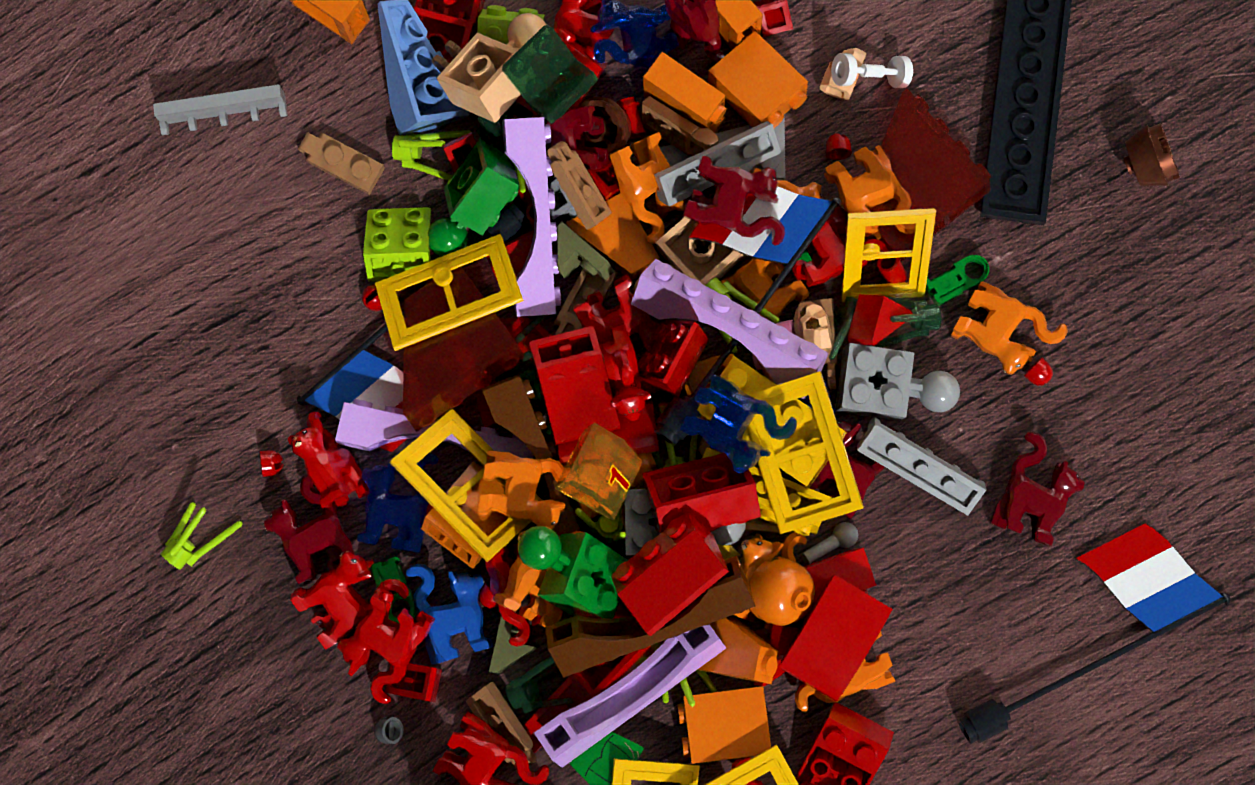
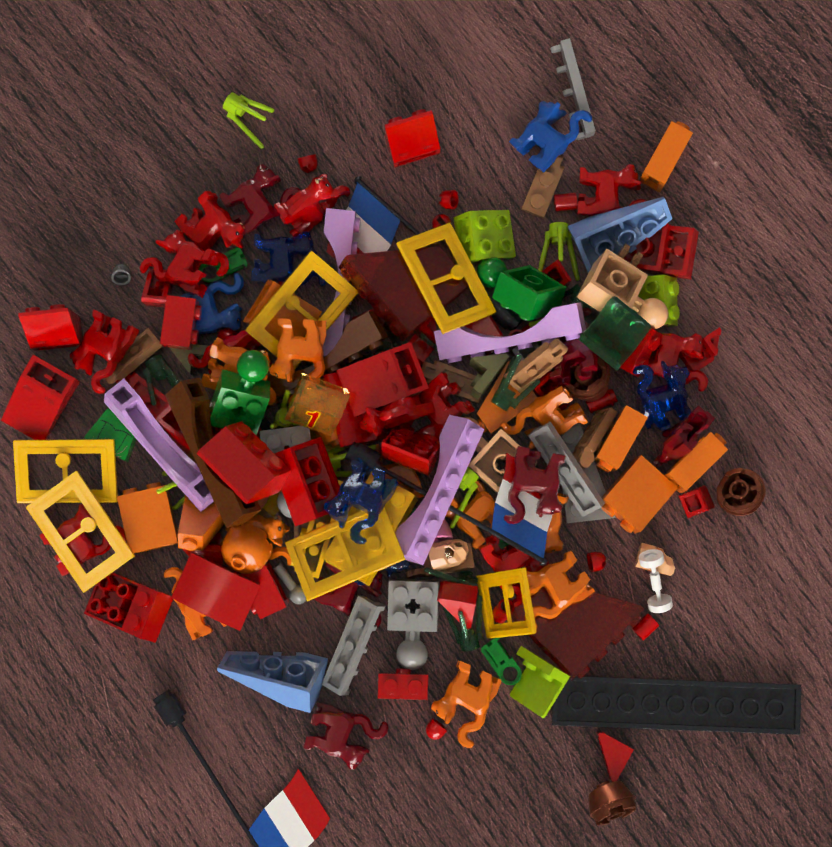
camera: 80 degrees right, 5 degrees up
(256, 317) = (412, 138): none -> red slope
(280, 146) = (550, 141): none -> blue animal
(343, 283) = (449, 199): none -> red hinge
(358, 81) = (607, 186): none -> red animal
(366, 136) = (565, 201): none -> red hinge
(465, 650) = (180, 322): none -> red brick
(612, 233) = (504, 396): none -> clear green plant
(929, 92) = (645, 626): none -> red hinge
(956, 564) = (286, 679): none -> medium blue wedge
(979, 407) = (403, 685): none -> red brick
(992, 231) = (538, 684): none -> lime bracket
(1090, 148) = (614, 753): none -> red slope

